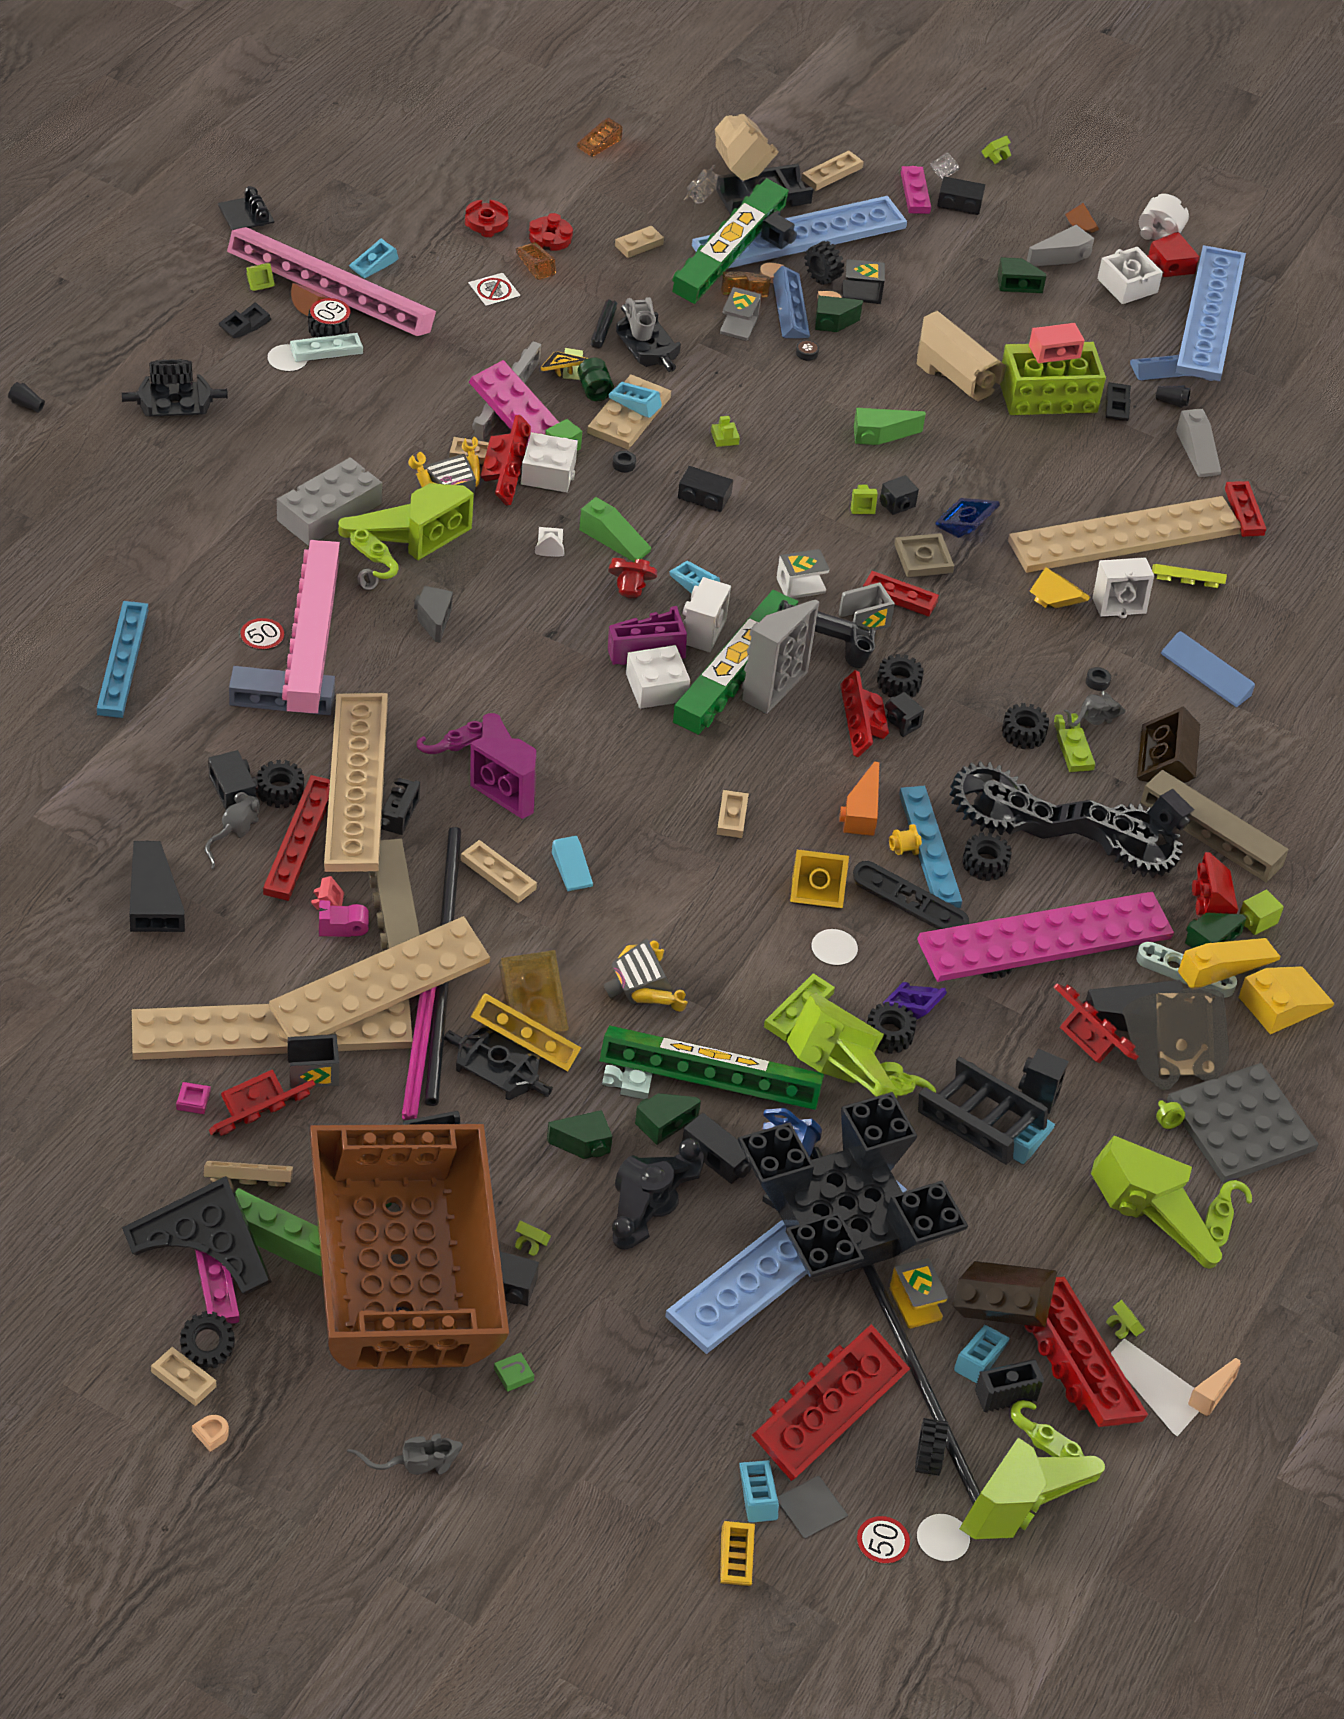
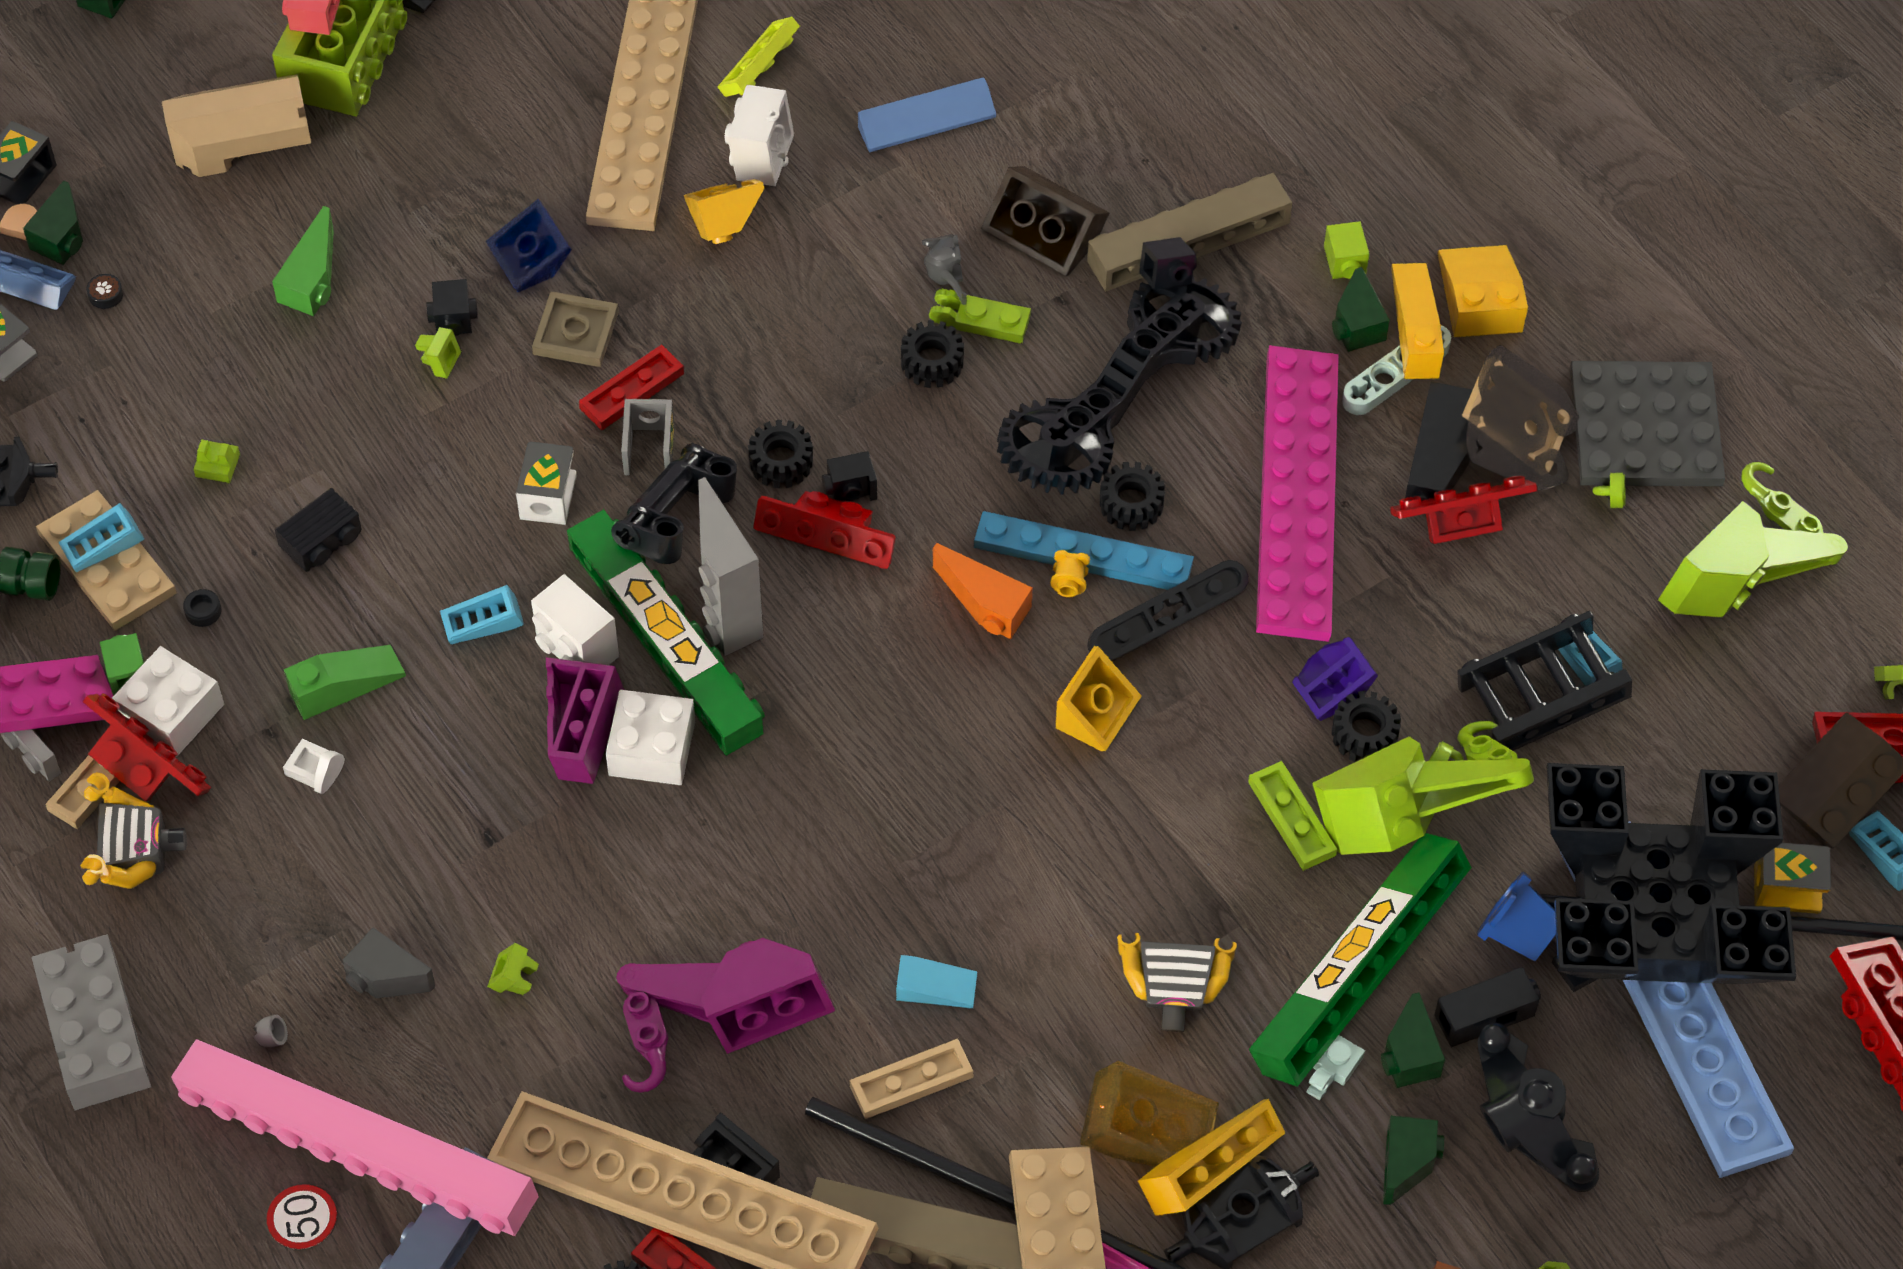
camera: 60 degrees left, 10 degrees up
(431, 520) = (208, 930): lime slope -> none
(465, 664) = (508, 970): none -> lime tile
(631, 576) = (450, 690): red plate -> none
(732, 814) = (933, 752): tan plate -> none
(834, 947) = (1199, 733): white sticker -> none
(1043, 1078) = (1530, 597): black brick -> none
(1098, 678) = (882, 238): black tile -> none
(1214, 887) = (1304, 284): red slope -> none

